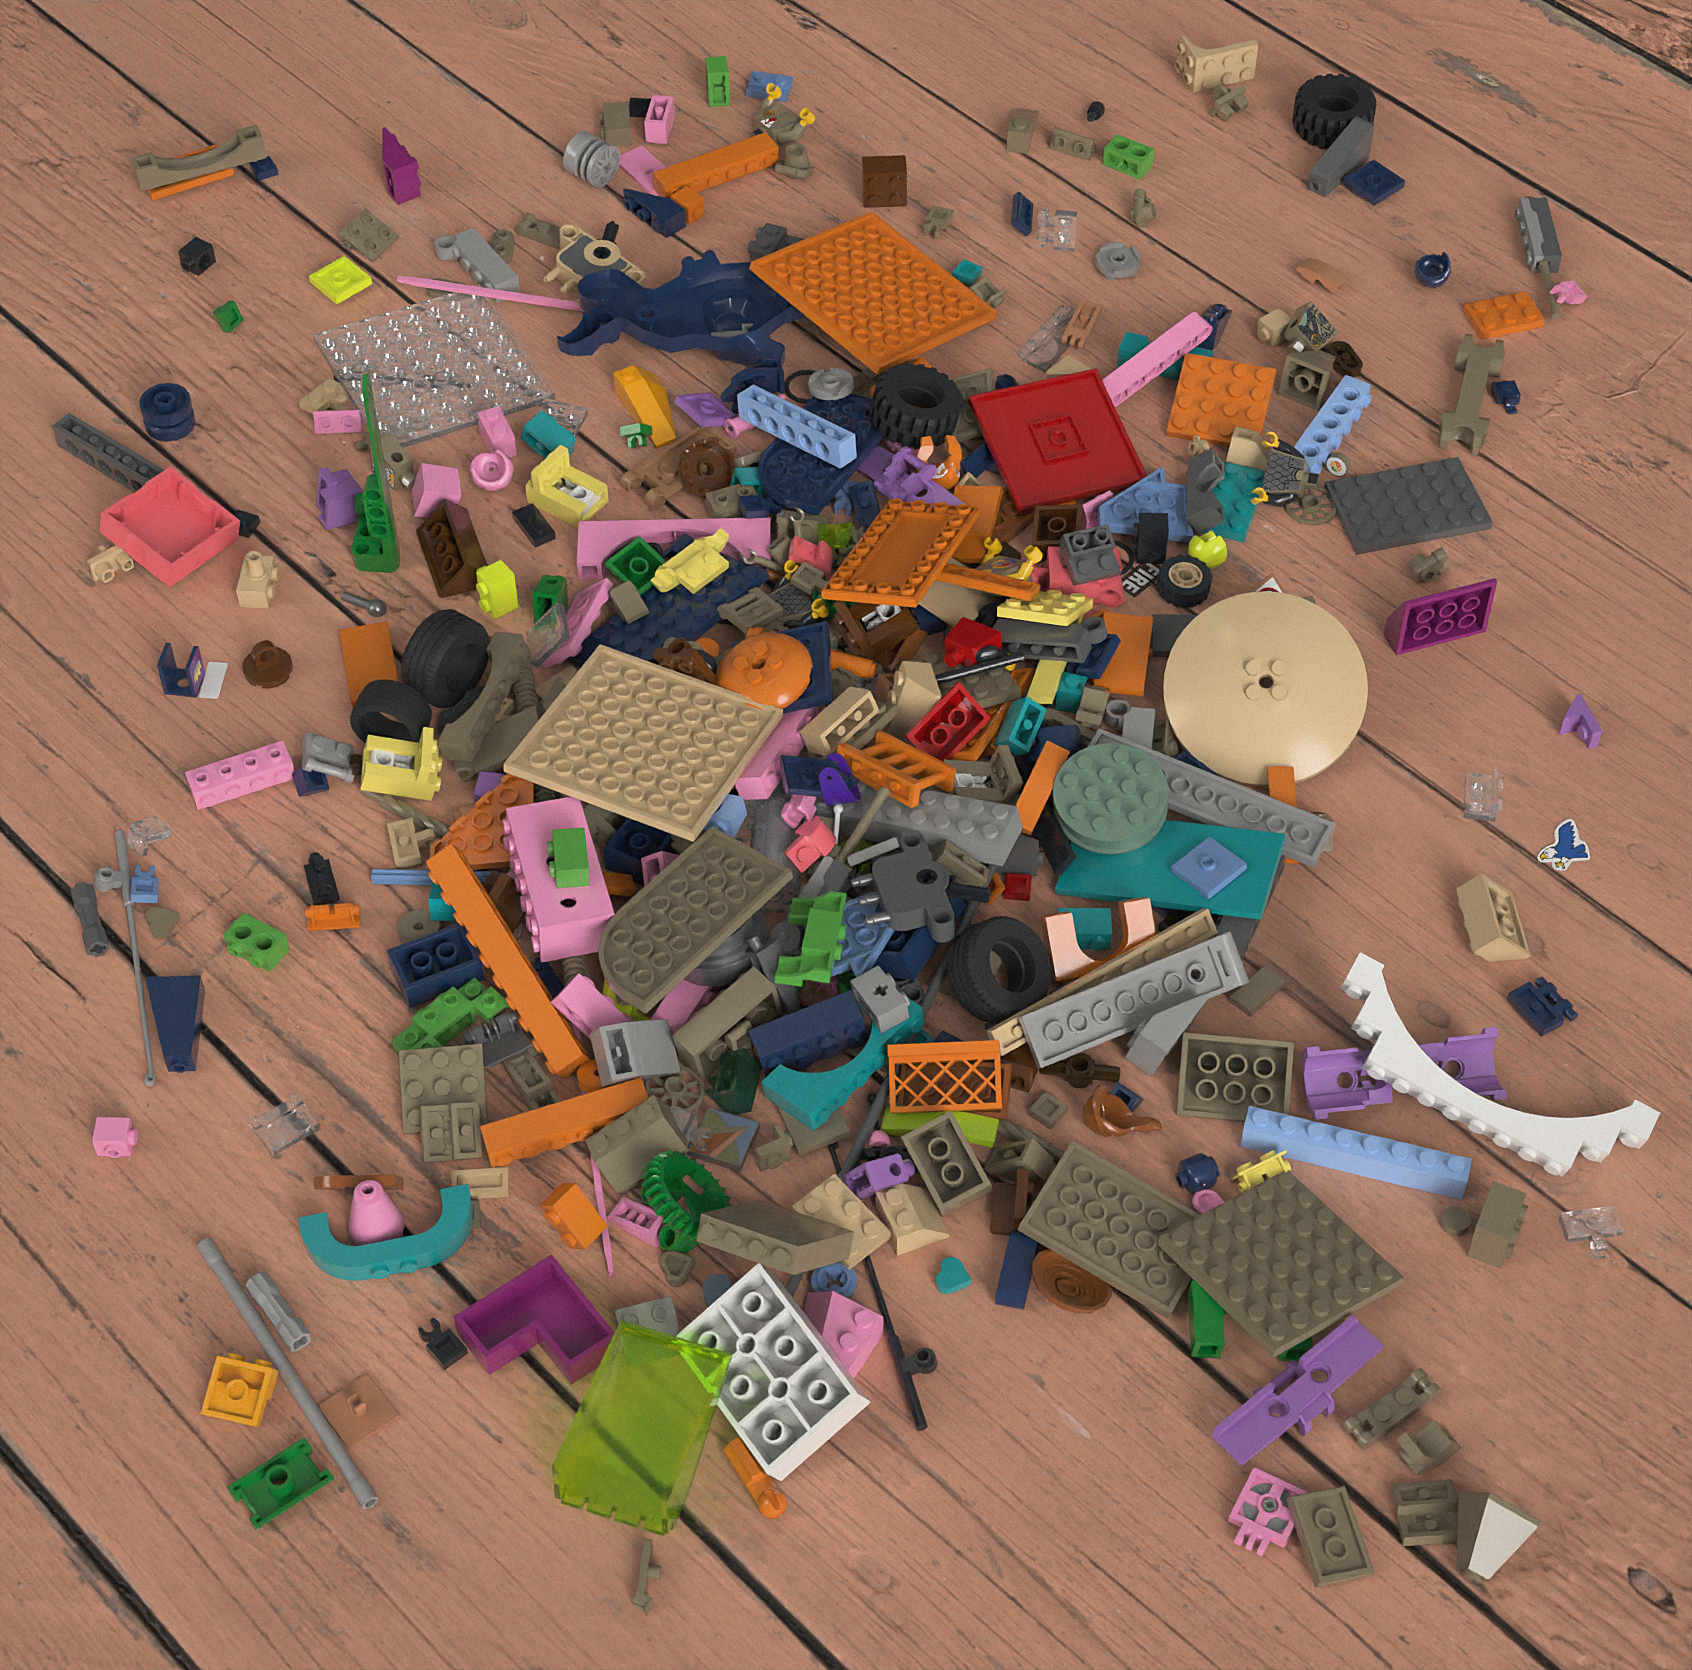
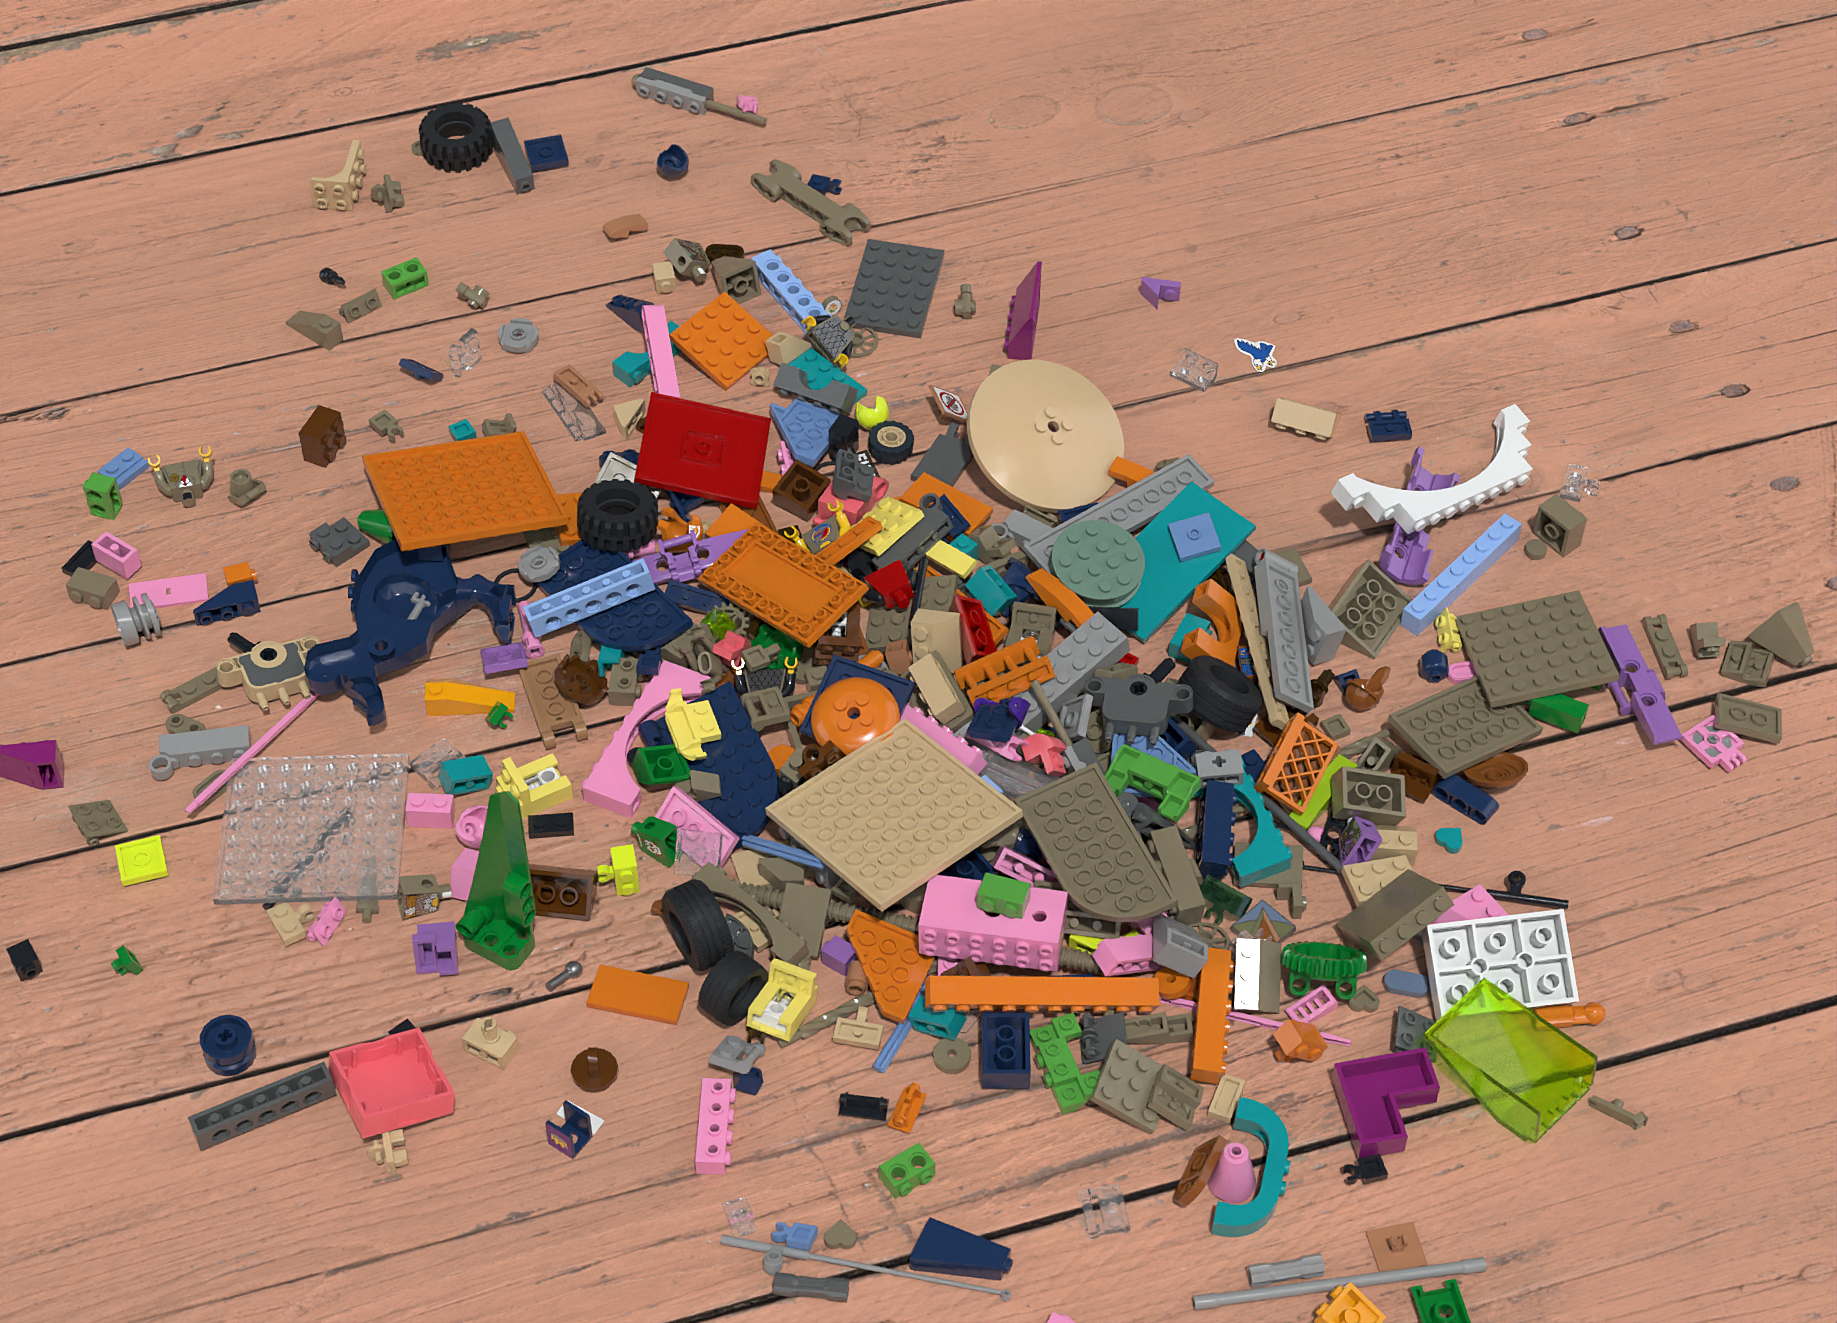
camera: 65 degrees left, 0 degrees up
(717, 166) = (207, 542): orange brick -> none
(1504, 315) = (739, 149): orange plate -> none

